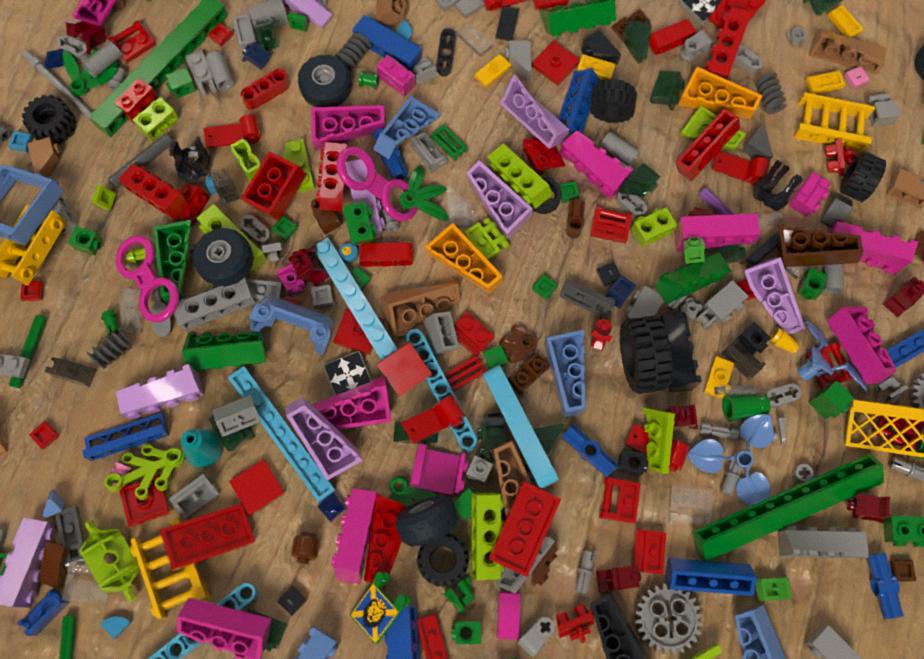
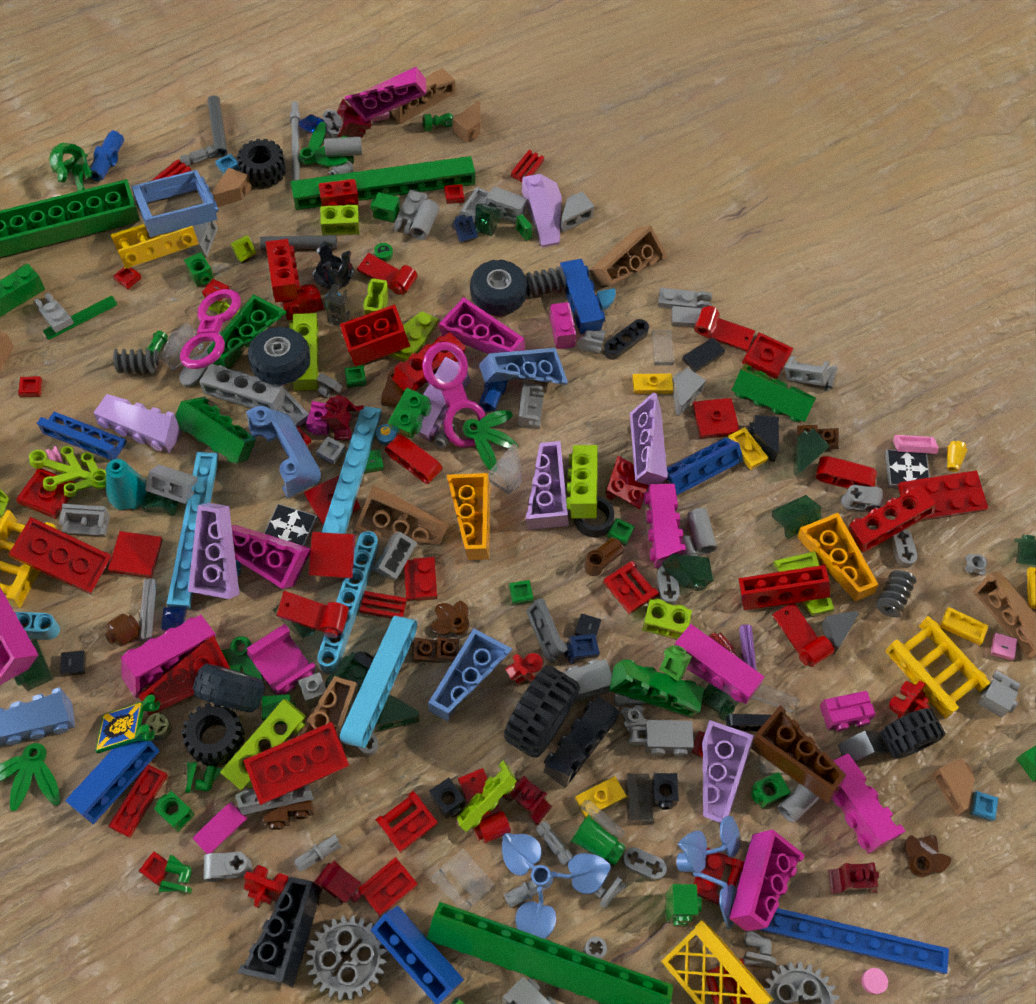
camera: 40 degrees right, 10 degrees down
(71, 372) = (94, 356): clear smoke hinge -> none
(112, 245) = (213, 286): none -> red tile
(134, 46) = (381, 156): red plate -> none
(212, 118) = (383, 251): none -> green tile
(258, 226) = (335, 359): light grey beam -> none
(270, 83) = (446, 259): red beam -> none
(306, 517) = (147, 609): none -> light grey axle
(368, 79) = (537, 313): green bush -> none
(396, 586) = (157, 721): none -> olive wheel
(458, 152) = (556, 426): green tile -> none
(483, 242) = (502, 513): lime plate -> none
(495, 357) = (422, 613): green tile -> none
(599, 460) = (422, 770): blue piece -> none
(613, 101) = (730, 484): black tyre -> none
(763, 189) = (807, 668): black piece -> none
(784, 341) = (692, 816): yellow cone -> none

